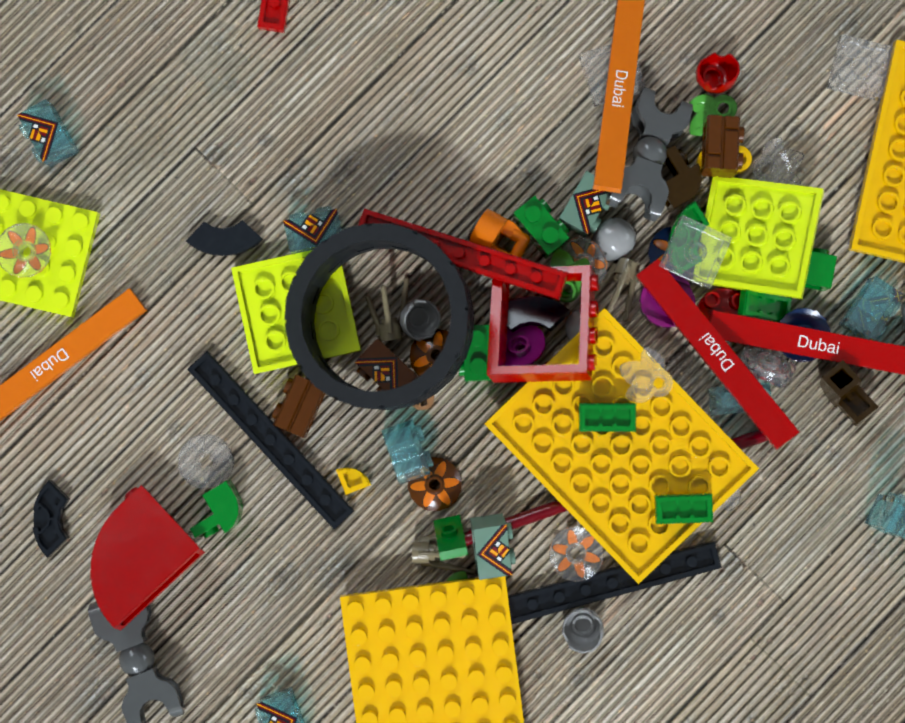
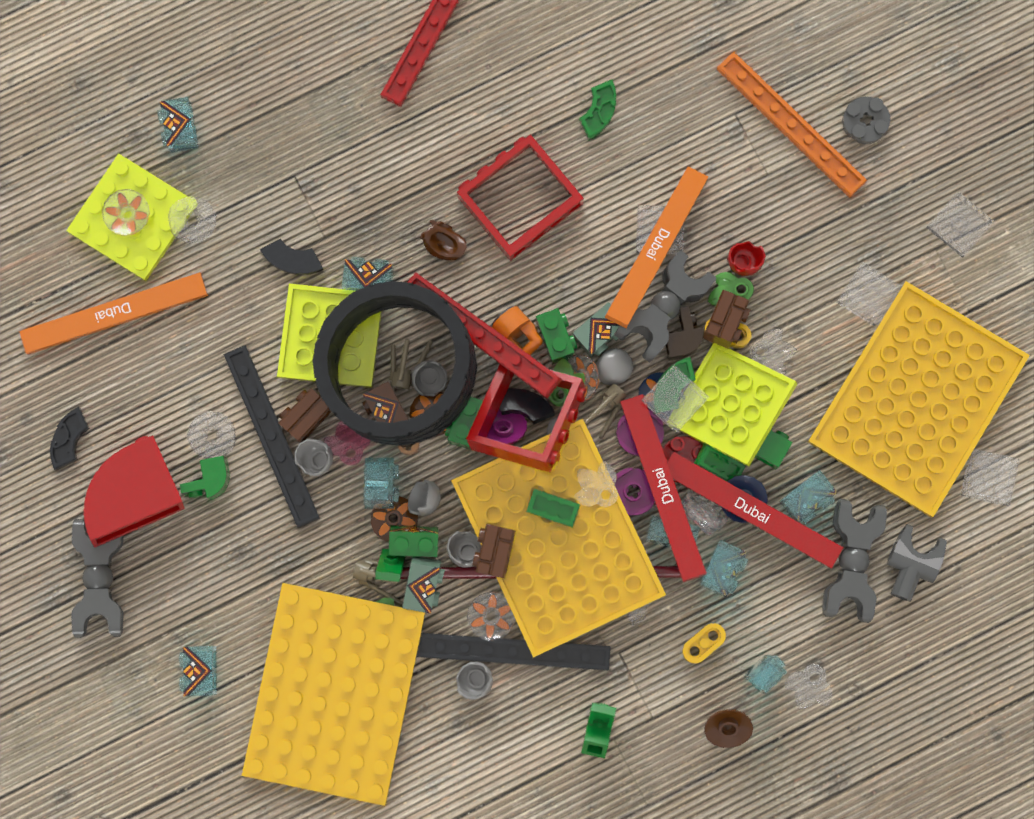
camera: 20 degrees right, 5 degrees down
(87, 242) = (179, 224): none -> clear plate
(325, 448) = (313, 457): none -> light grey hair
(351, 419) = (345, 440): none -> clear pink plate
(352, 479) = (327, 492): yellow tile -> none
(383, 165) = (443, 241): none -> reddish brown hat
(415, 54) = (542, 227): none -> red window
(460, 452) = (424, 498): none -> light grey hair
(465, 502) = (413, 541): none -> green brick
(523, 491) = (462, 548): none -> light grey hair
(560, 485) = (494, 551): none -> reddish brown brick
(683, 508) = (590, 605): green plate -> none
(697, 368) = (635, 478): none -> magenta plate
(733, 637) = (598, 730): none -> green brick
(808, 413) = (723, 569): none -> clear light blue brick
(815, 506) = (703, 643): none -> yellow plate
(844, 391) = (763, 559): dark brown brick -> none
(871, 586) = (728, 728): none -> reddish brown dish

